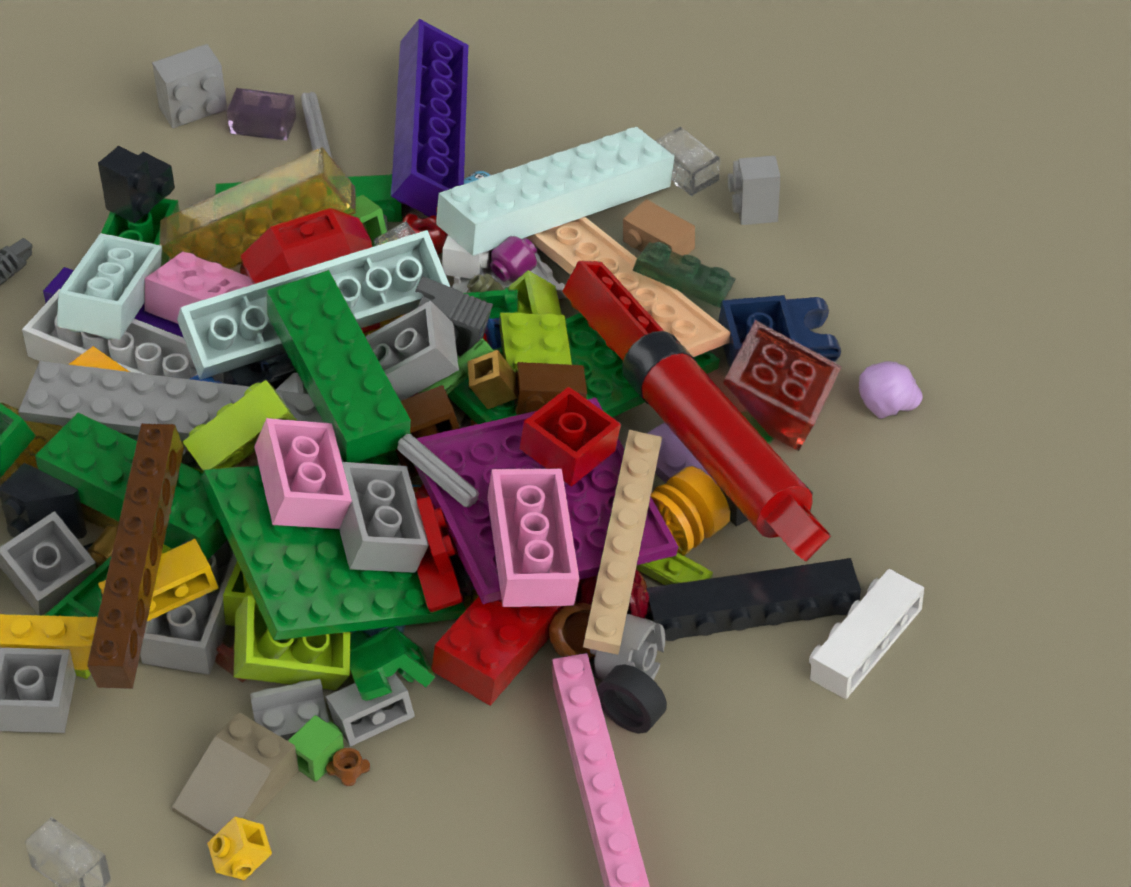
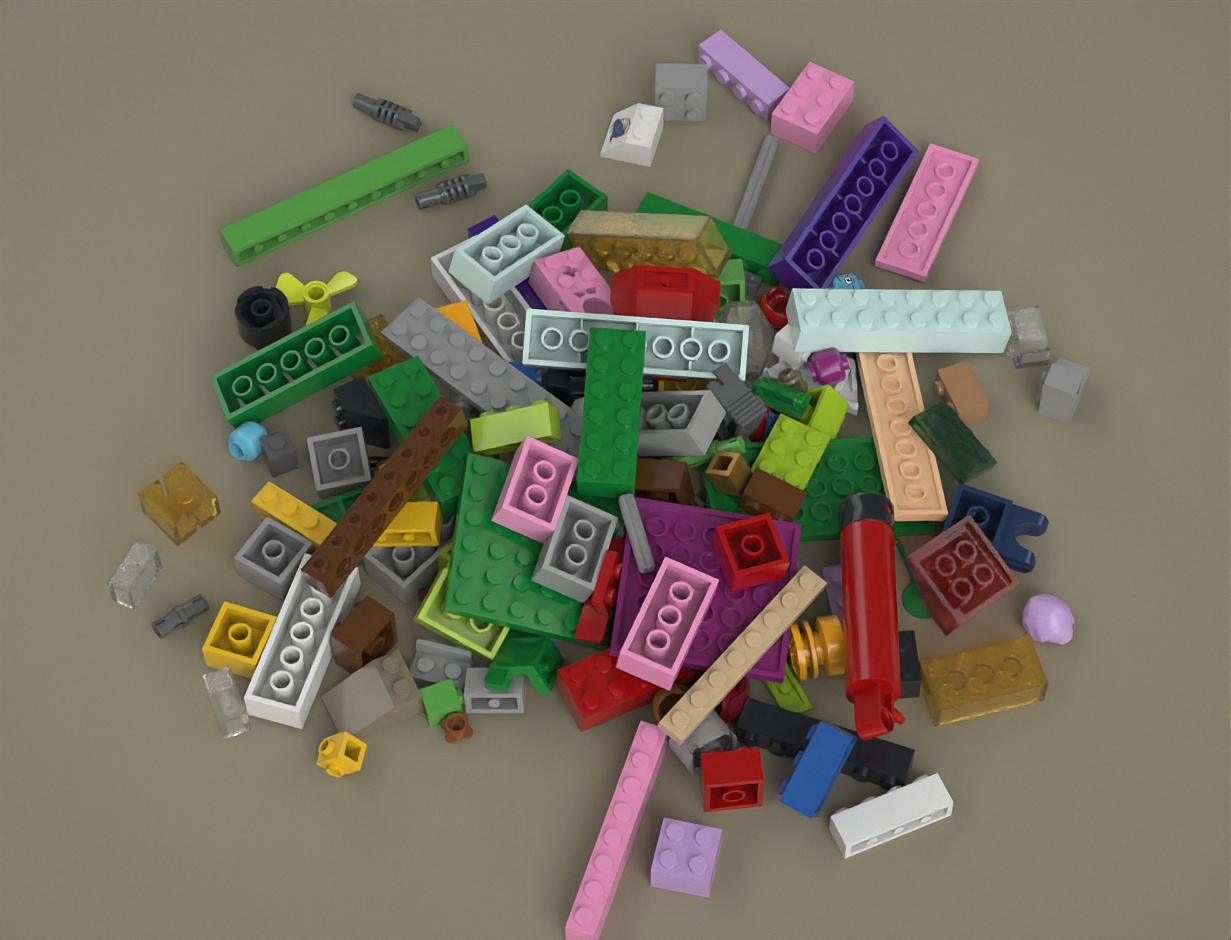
camera: 30 degrees right, 10 degrees up
(46, 785) = (238, 639): none -> yellow brick
(119, 767) = (298, 651): none -> white brick
(134, 182) = (577, 171): black brick -> none
(166, 137) = (634, 134): none -> white slope
(187, 717) = (363, 635): none -> reddish brown brick
(247, 51) = (742, 74): none -> lavender brick
(261, 114) = (724, 140): clear purple brick -> none
(332, 52) = (812, 107): none -> bright pink brick
(510, 98) = (927, 213): none -> bright pink plate
(608, 306) = (867, 449): red brick -> none
(631, 698) = (679, 780): black tyre -> none
(688, 771) = (686, 857): none -> lavender brick
(689, 669) = (731, 779): none -> red brick
(772, 613) = (817, 768): none -> blue brick
(868, 469) = (982, 680): none -> clear yellow brick

